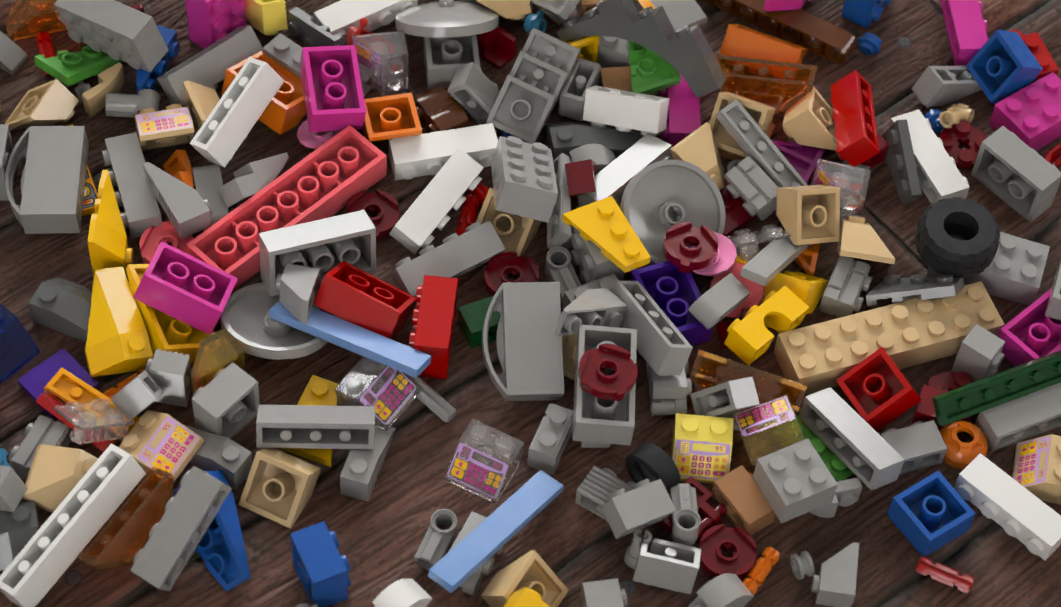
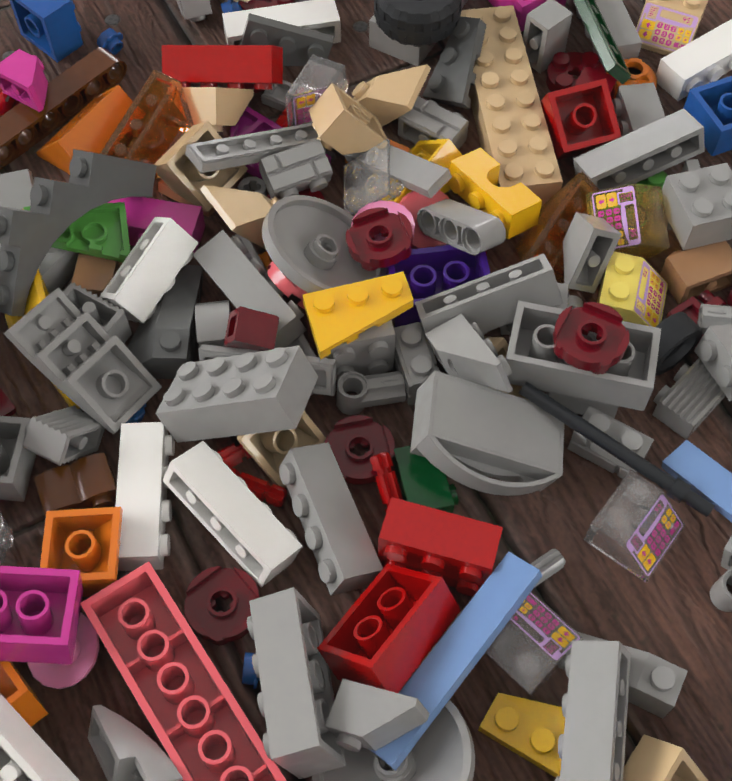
camera: 75 degrees left, 5 degrees up
(483, 292) = (385, 478): none -> red axle
(514, 472) = (676, 488): none -> black bar

